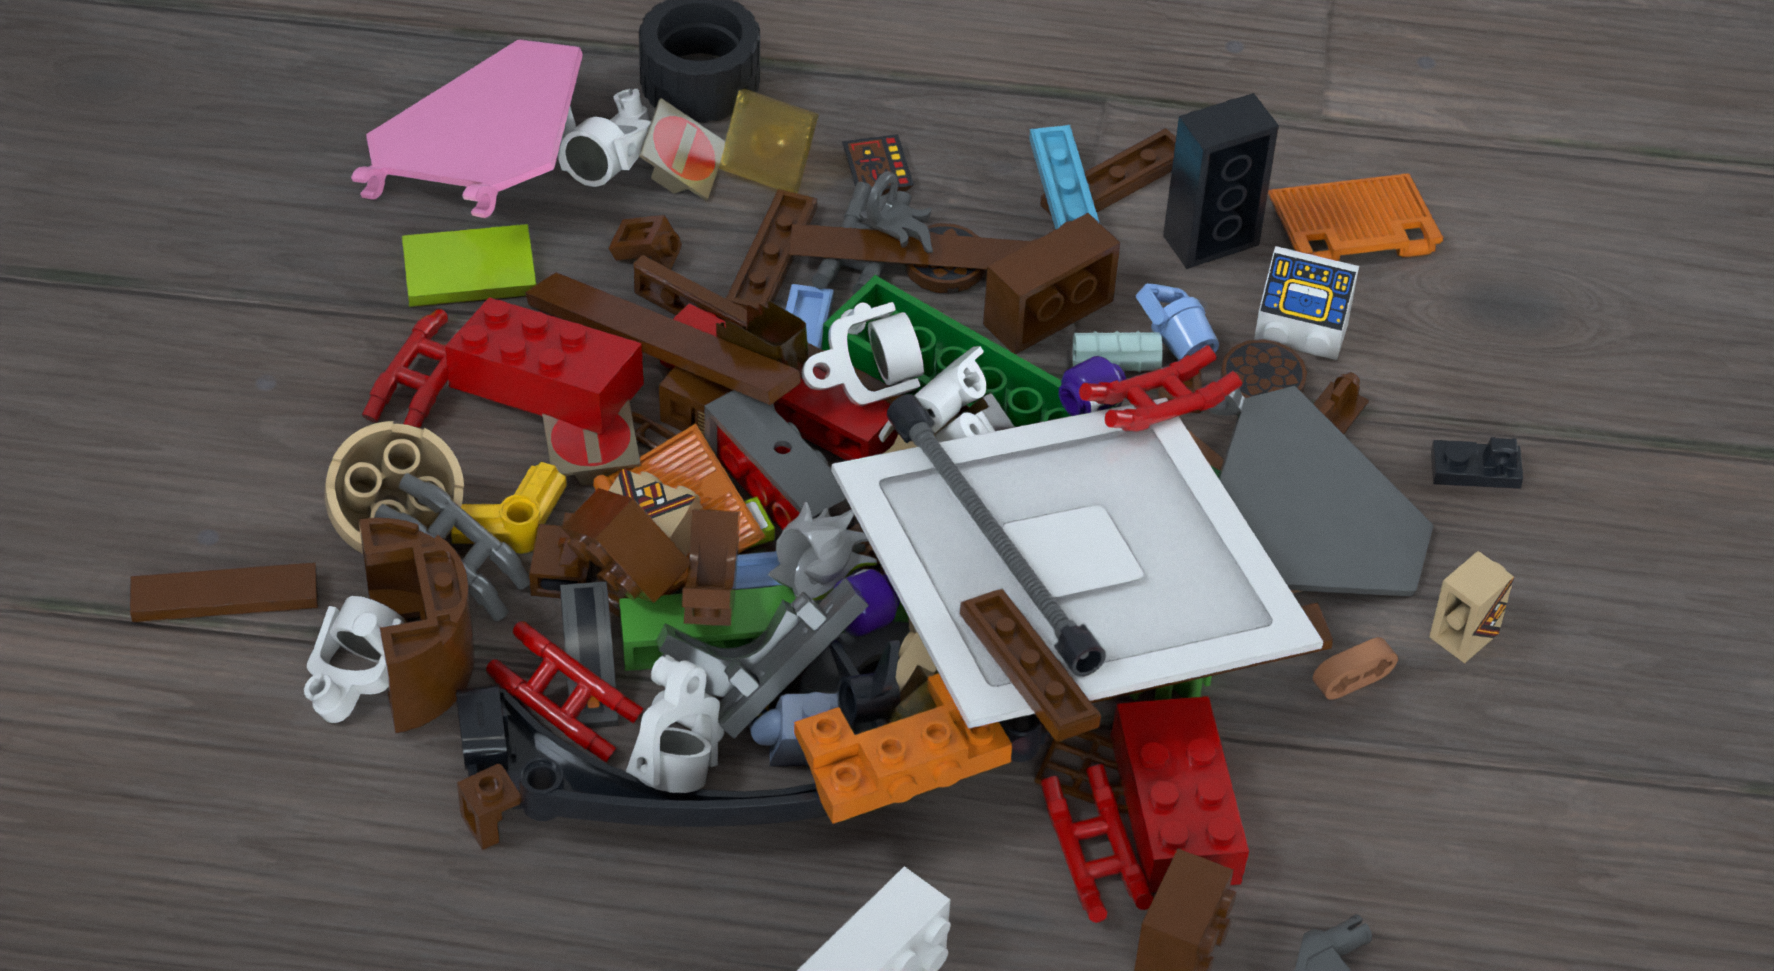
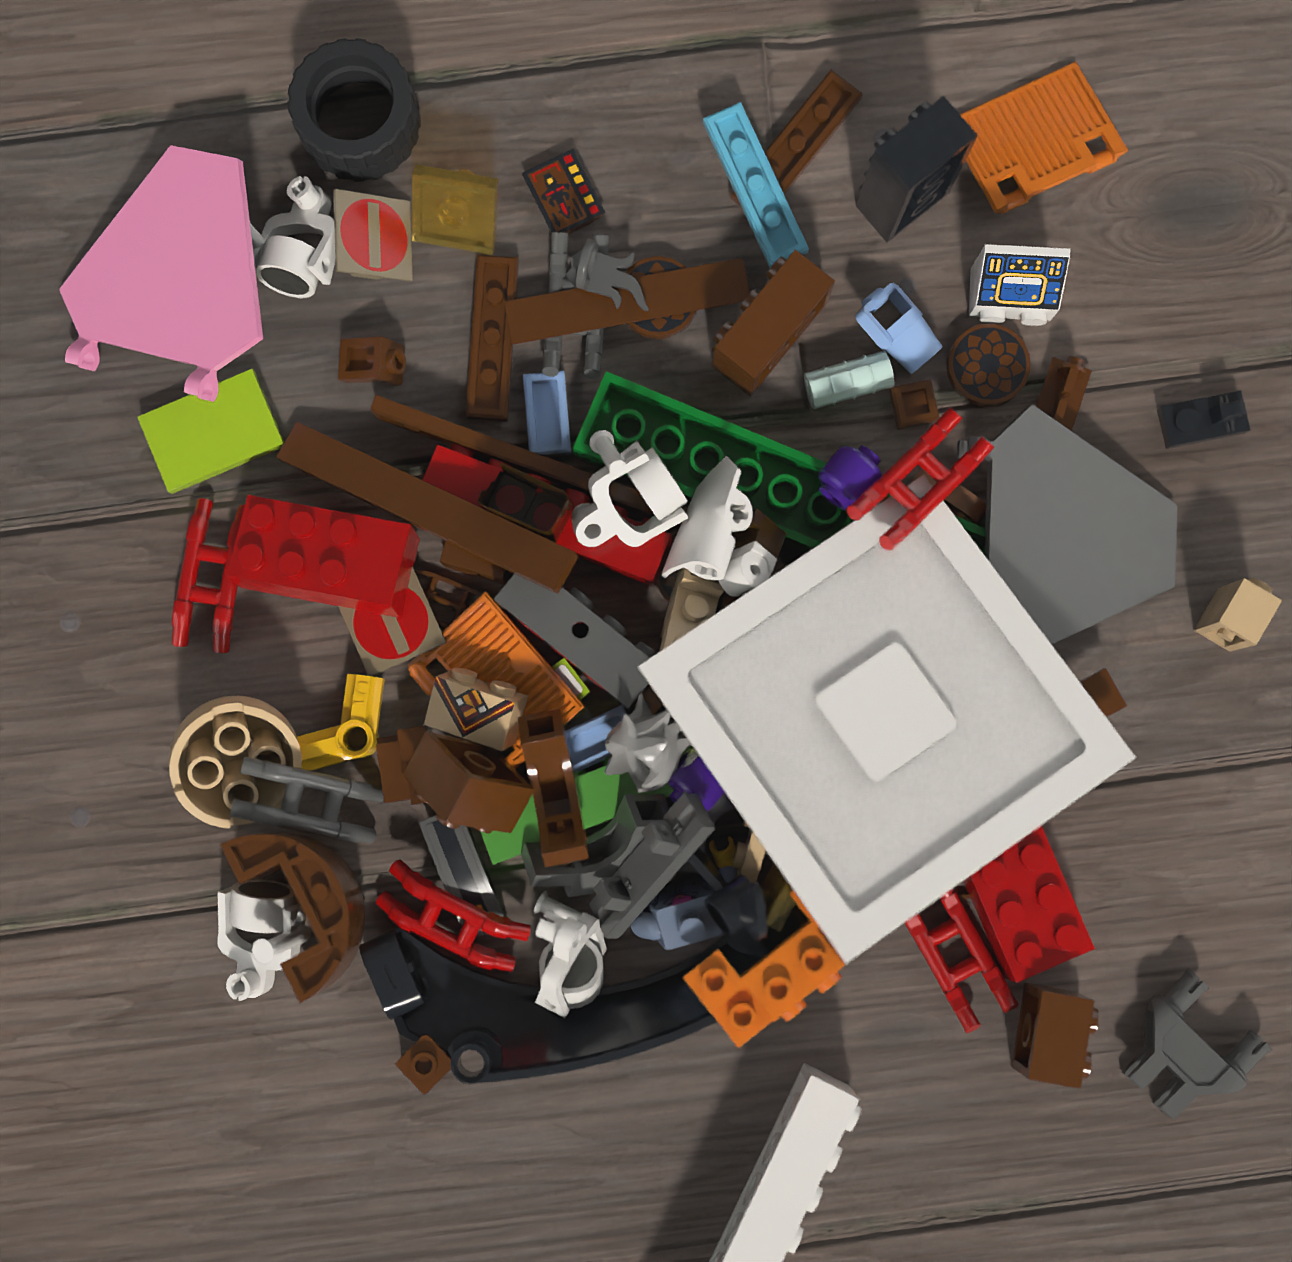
camera: 10 degrees left, 35 degrees up
(223, 592) = (116, 881): reddish brown tile -> none
(1030, 665) = (884, 880): reddish brown tile -> none
(1075, 643) = (922, 849): dark grey hose -> none
(1355, 668) = (1142, 696): nougat beam -> none

